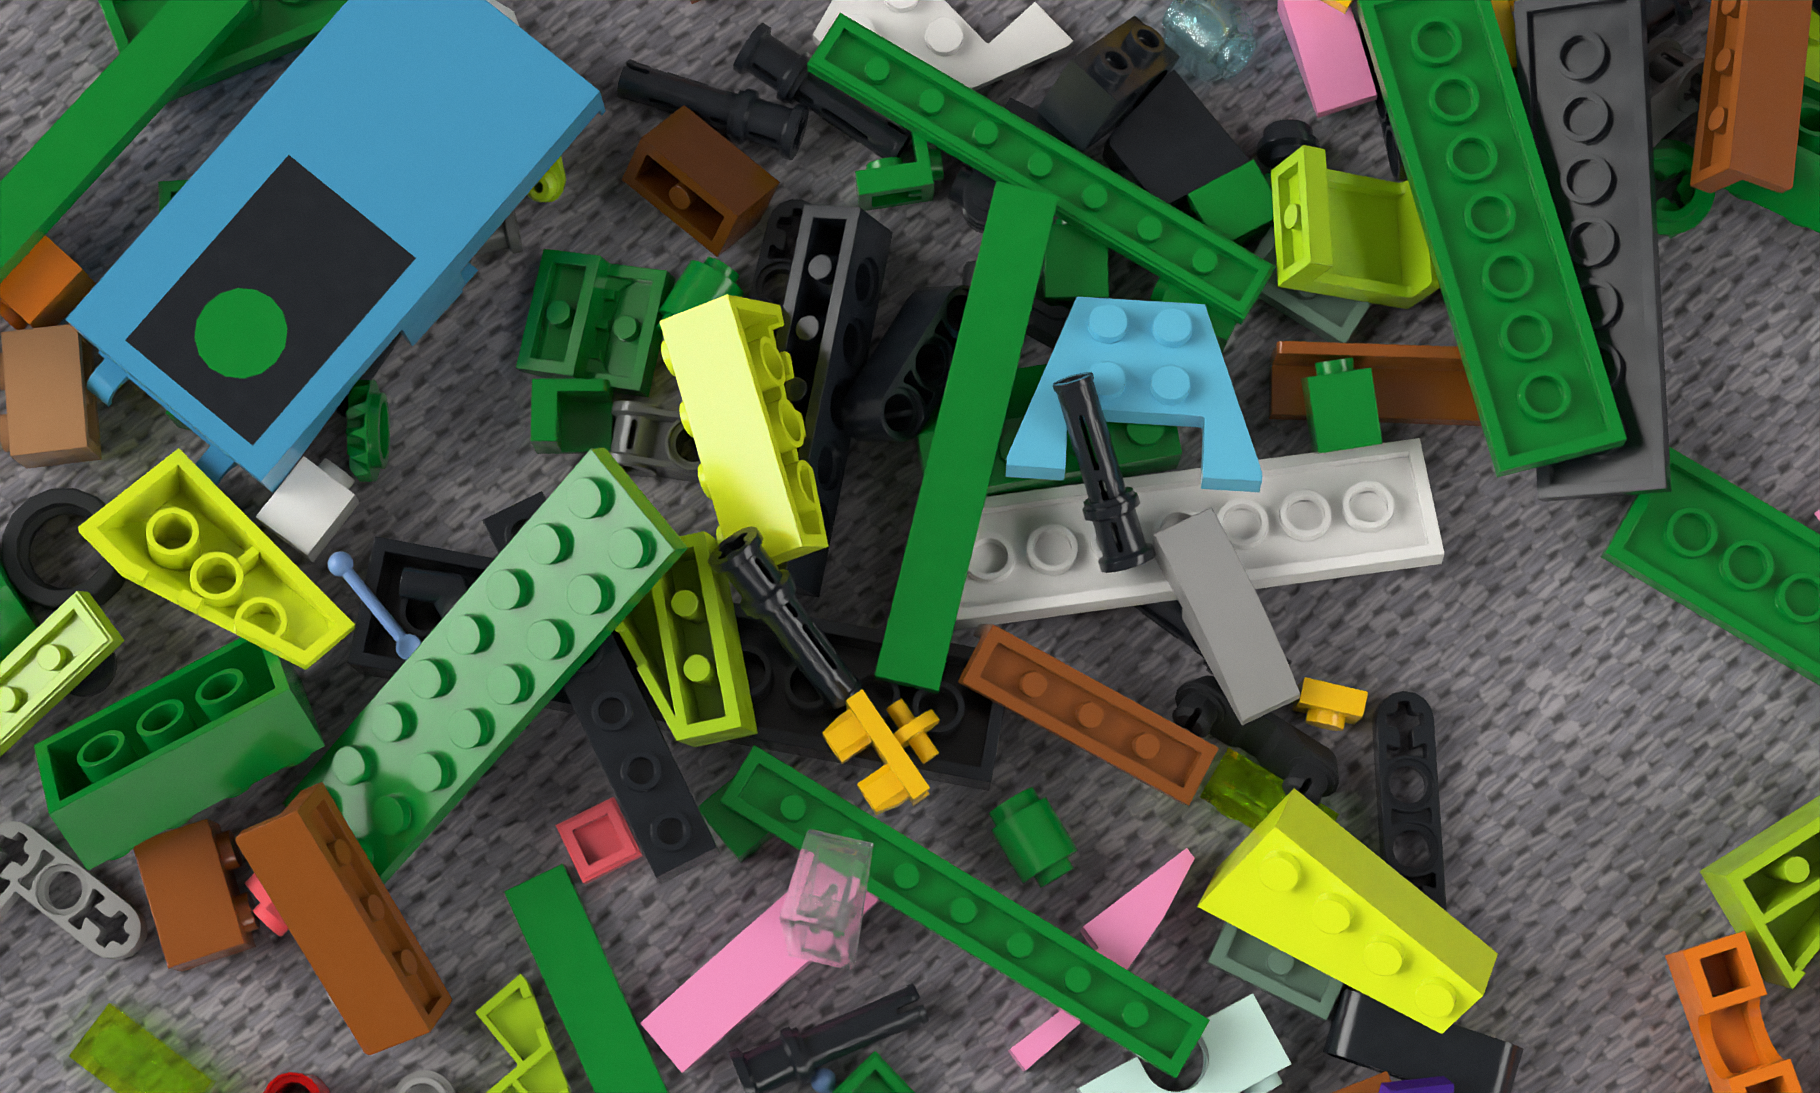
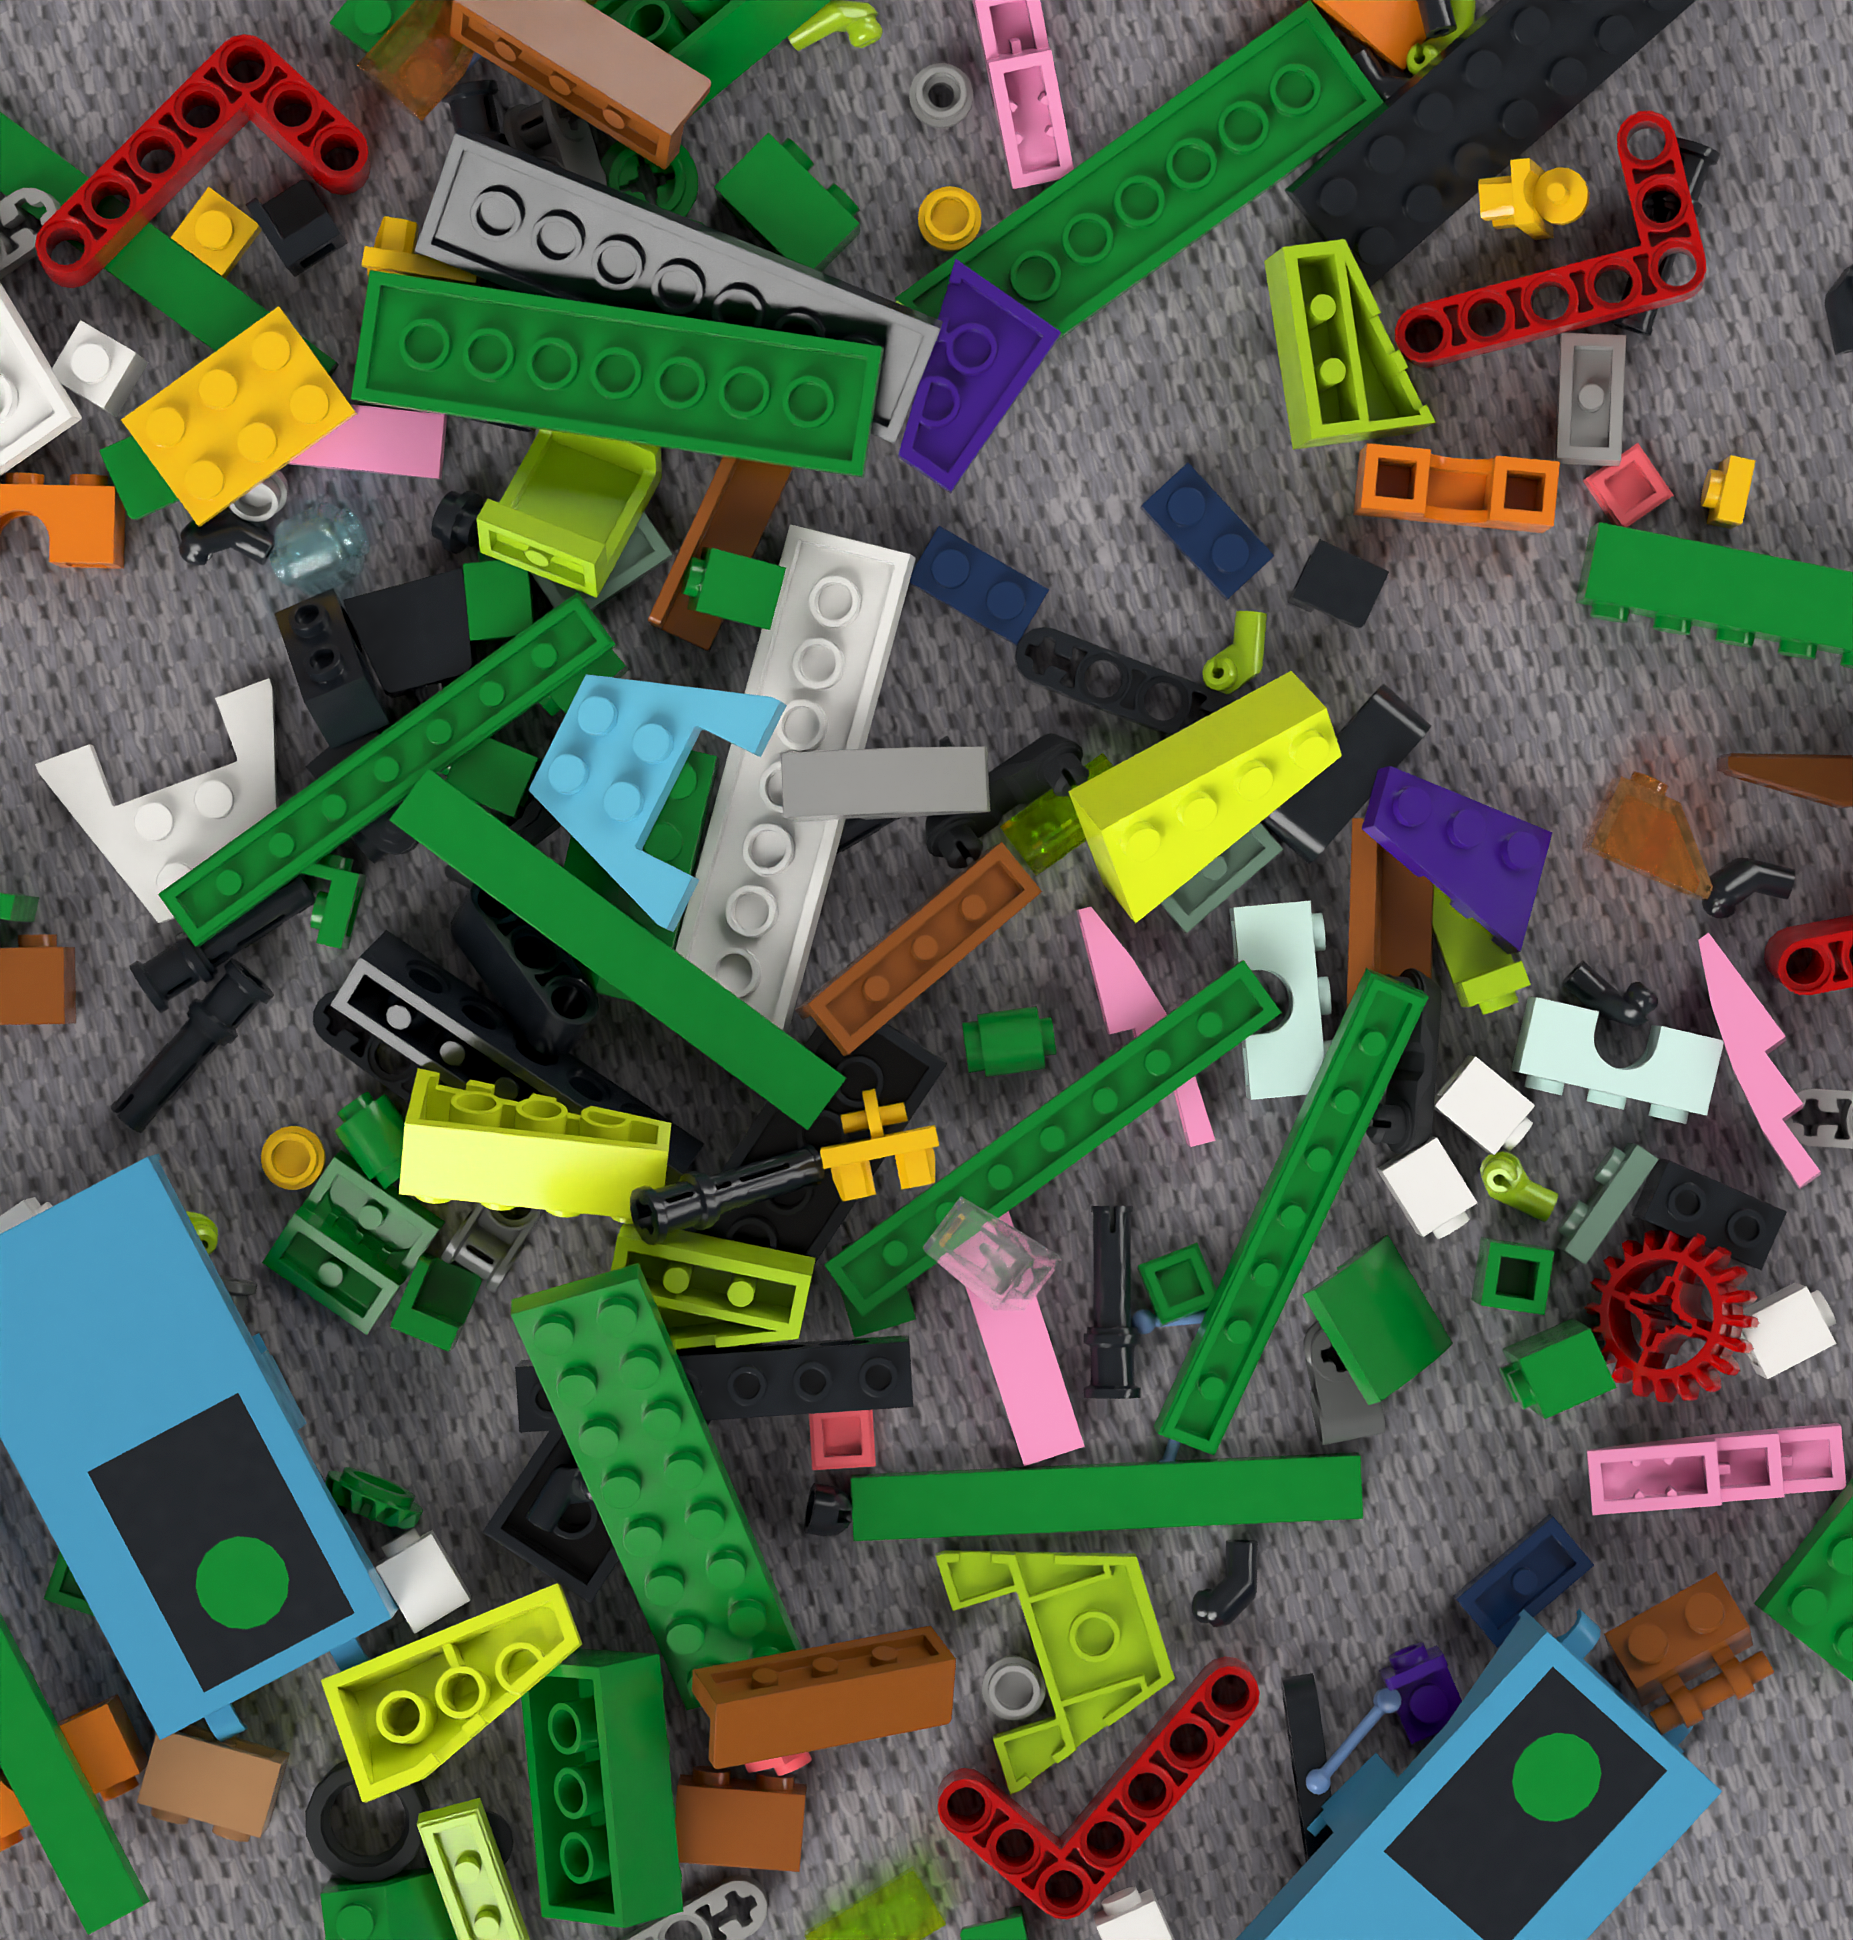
camera: 65 degrees left, 10 degrees up
(340, 565) = (497, 1573): medium blue hinge -> none
(522, 850) = (823, 1510): none -> black hinge
(650, 238) = (293, 1157): none -> yellow plate
(700, 180) = (261, 1090): reddish brown brick -> none
(1109, 510) = (735, 845): black pin -> none
(1329, 704) = (1002, 719): yellow plate -> none
(1440, 633) = (977, 585): none -> dark blue plate
(1482, 906) = (1241, 659): none -> lime arm
(1586, 824) = (1207, 531): none -> dark blue plate
(1597, 965) = (1338, 584): none -> black panel
(1632, 543) = (972, 376): none -> dark purple wing
(1704, 315) = (787, 205): none -> green brick
(1760, 467) = (949, 218): none -> yellow plate

